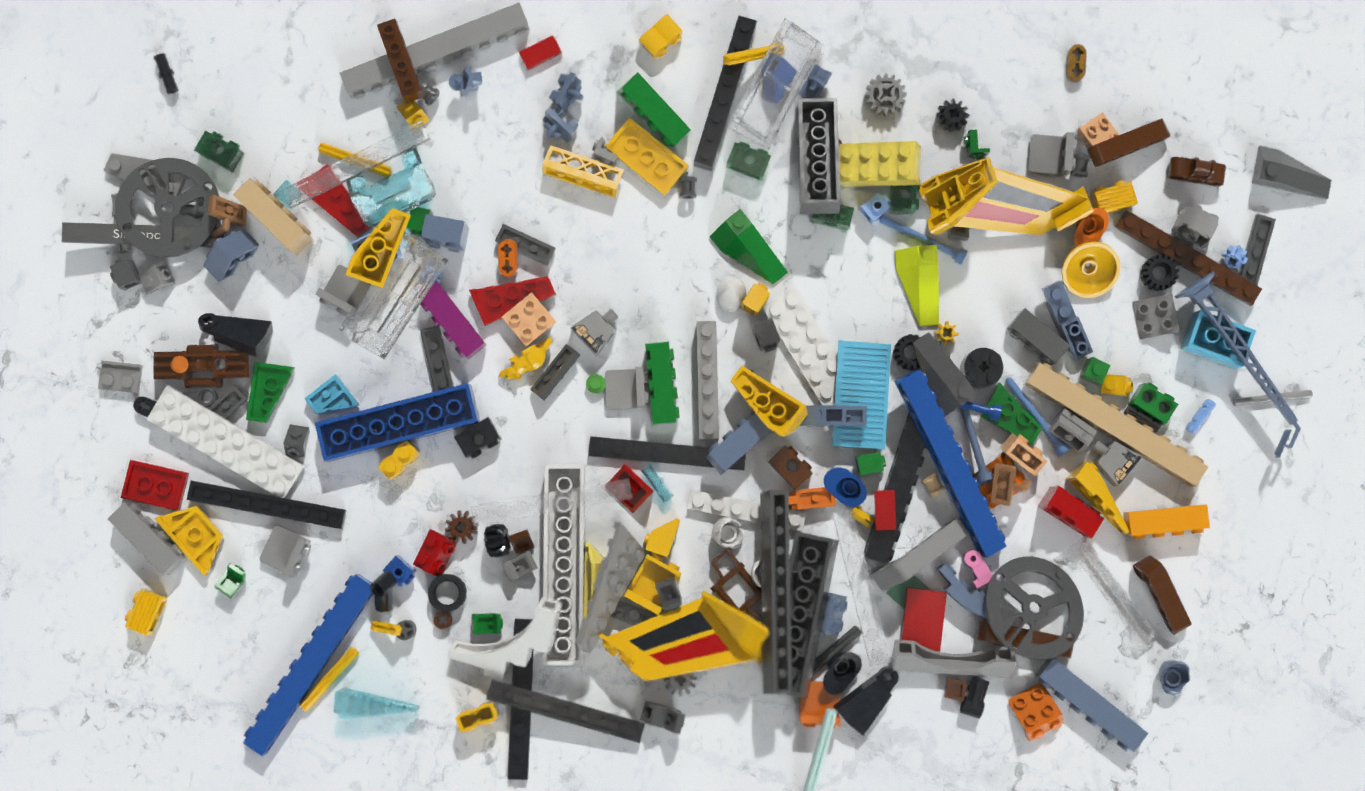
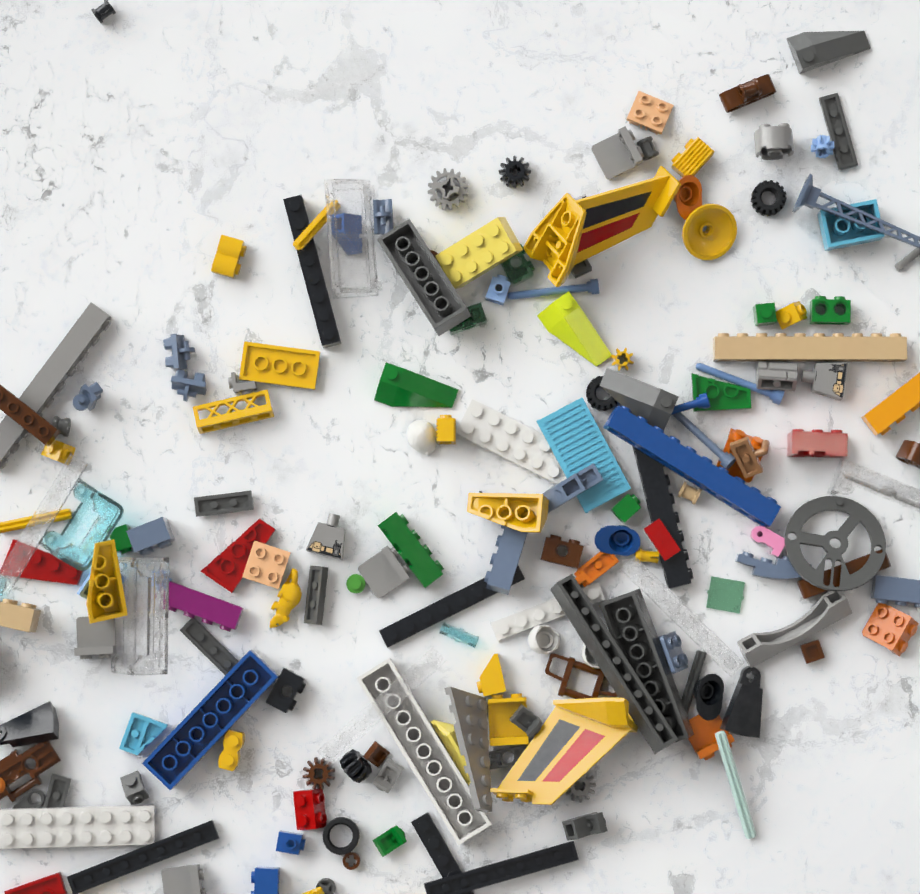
camera: 25 degrees left, 0 degrees up
(266, 390) = (82, 762): green wing -> none
(382, 591) = (287, 868): black piece -> none
(504, 256) = (219, 521): orange beam -> none
(518, 649) = (430, 845): white arch -> none
(540, 52) = (134, 332): red tile -> none
(639, 489) = (447, 649): red slope -> none
(653, 110) = (260, 322): green wedge -> none
(688, 187) = (330, 370): dark grey bush -> none
(707, 380) = (448, 522): light grey arch -> none
(756, 169) = (378, 319): clear green brick -> none
(766, 335) = (473, 455): black brick -> none
(920, 555) = (715, 558): light grey beam -> none
(924, 617) = (750, 608): red tile -> none
(971, 143) = (545, 186): green bracket -> none
(974, 700) = (833, 653): black piece -> none
(990, 361) = (665, 380): black brick -> none
(1023, 454) = (748, 421): light nougat brick -> none
(1038, 337) = (700, 315): dark grey brick -> none
(1066, 321) = (715, 286): sand blue slope -> none
(1080, 63) = (594, 60): pearl gold beam -> none
(1093, 488) = (821, 412): yellow wedge -> none
(1128, 142) = (675, 105): reddish brown beam -> none
(1142, 418) = (829, 329): dark grey axle -> none
(1156, 316) = (788, 236): light grey hinge -> none
(1188, 257) = (784, 170): reddish brown plate -> none
(1200, 416) = (875, 299): light blue axle -> none

